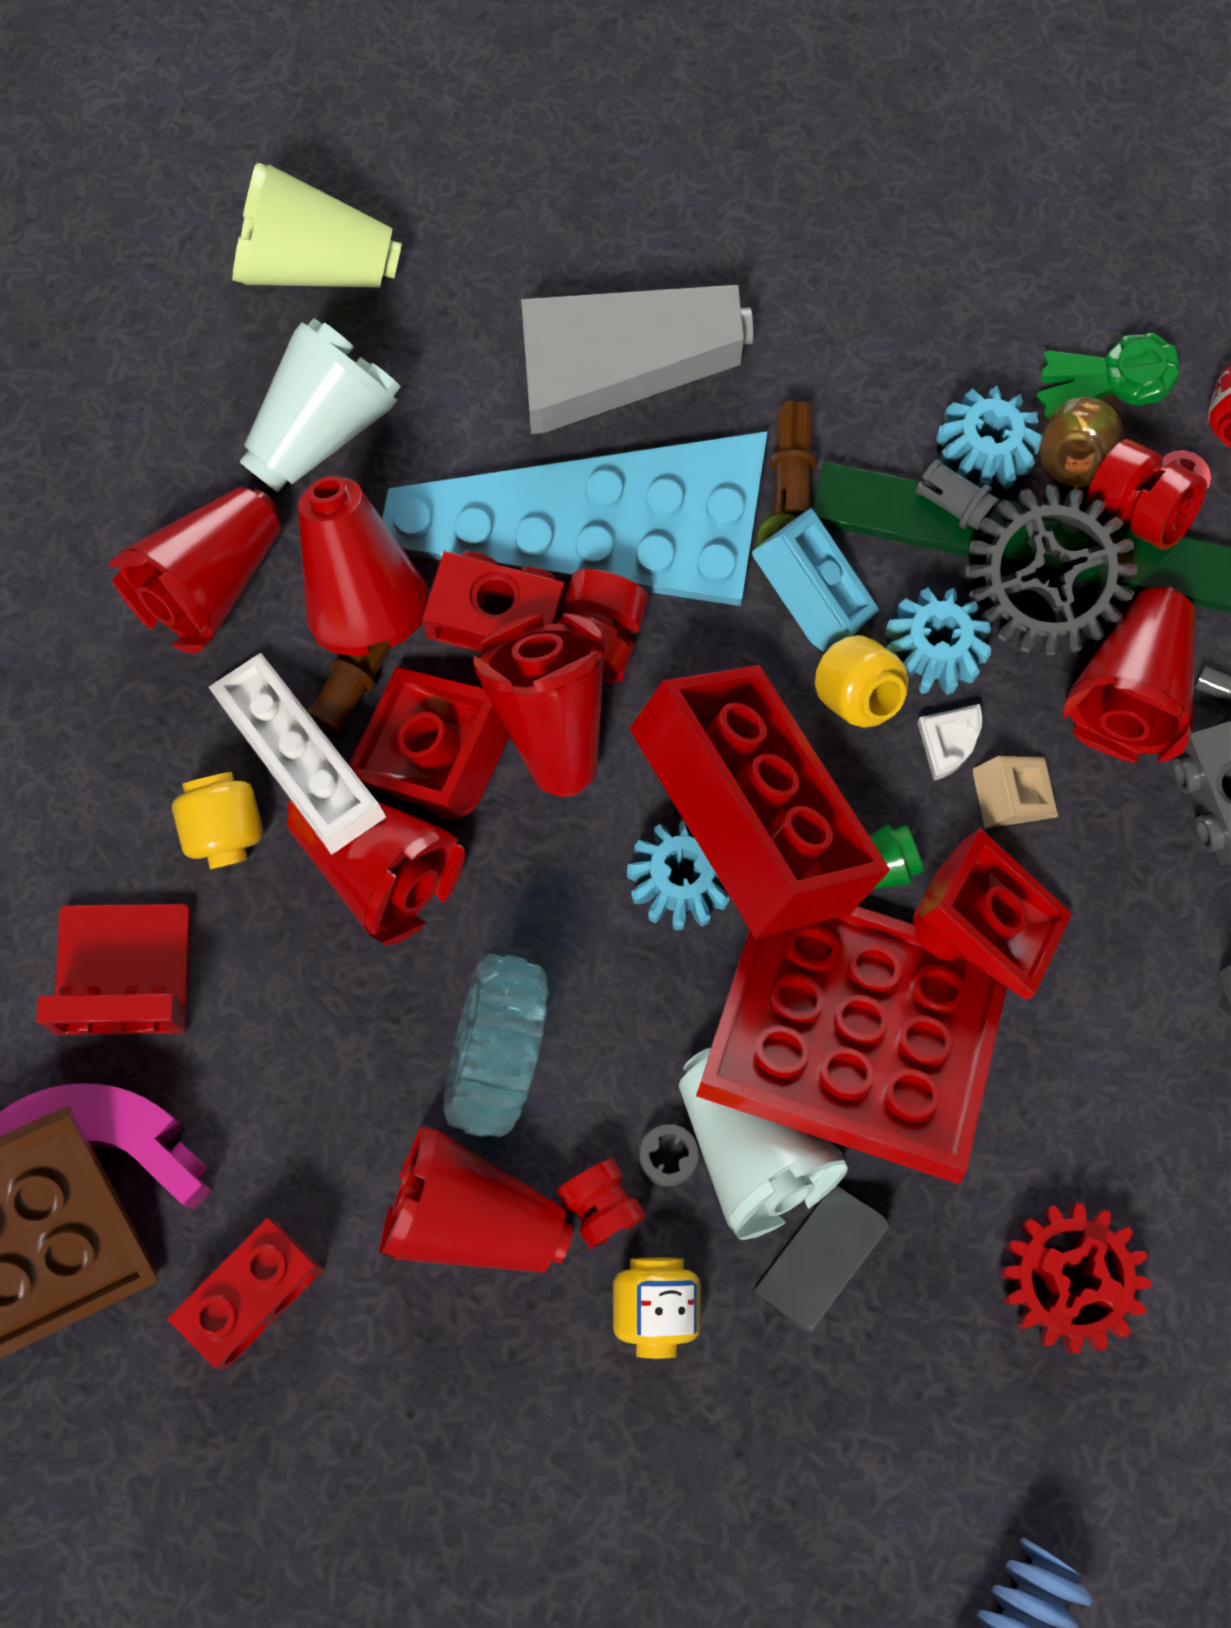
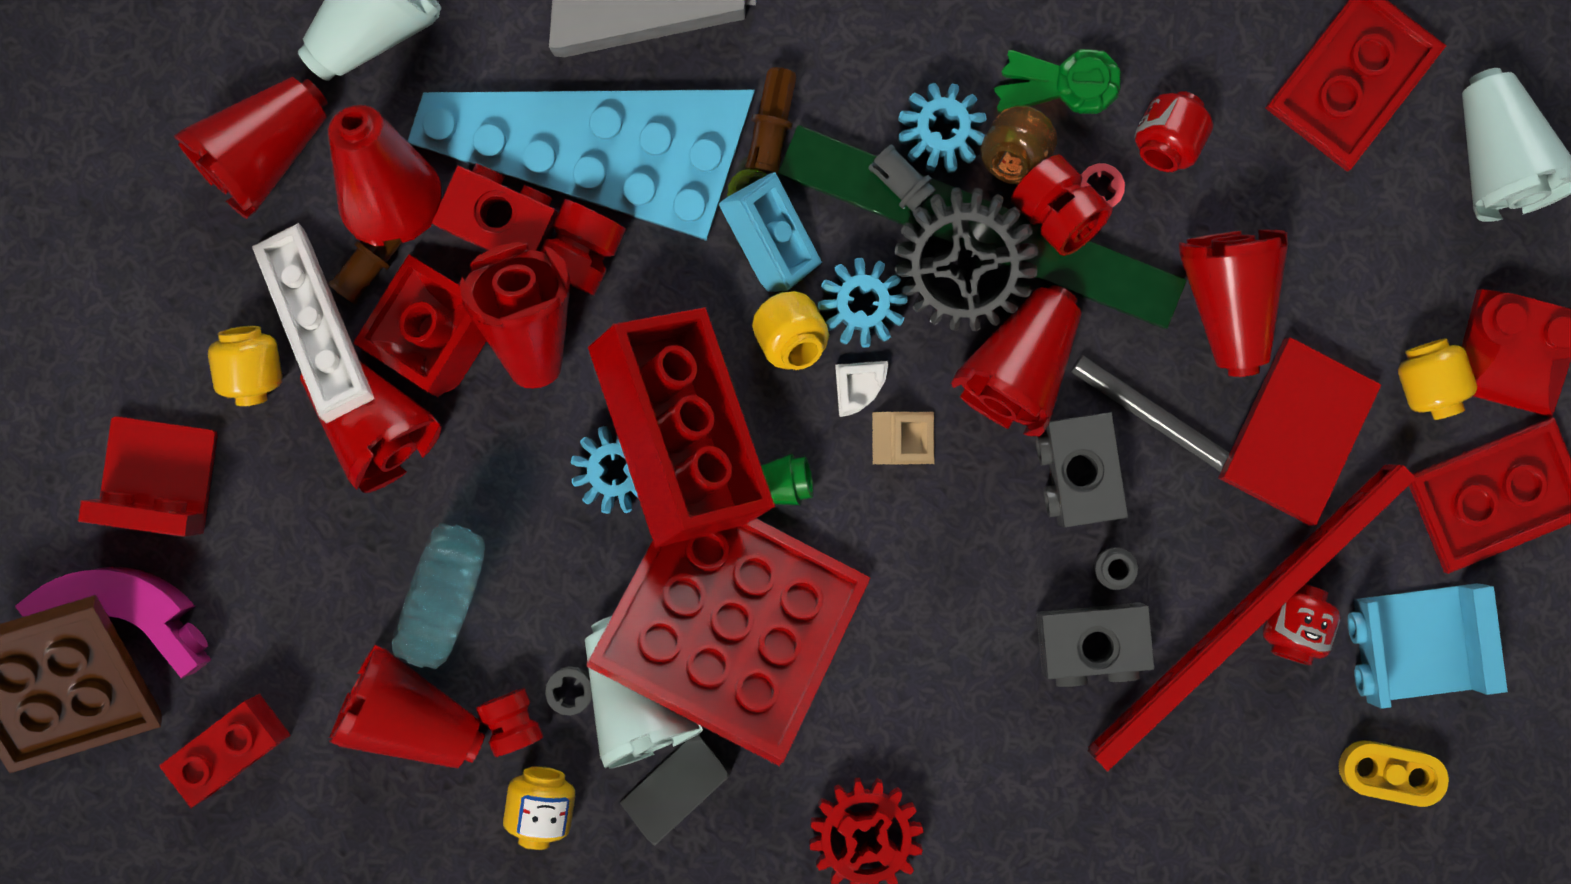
camera: 10 degrees right, 15 degrees up
(992, 915) = (856, 546): red slope -> none

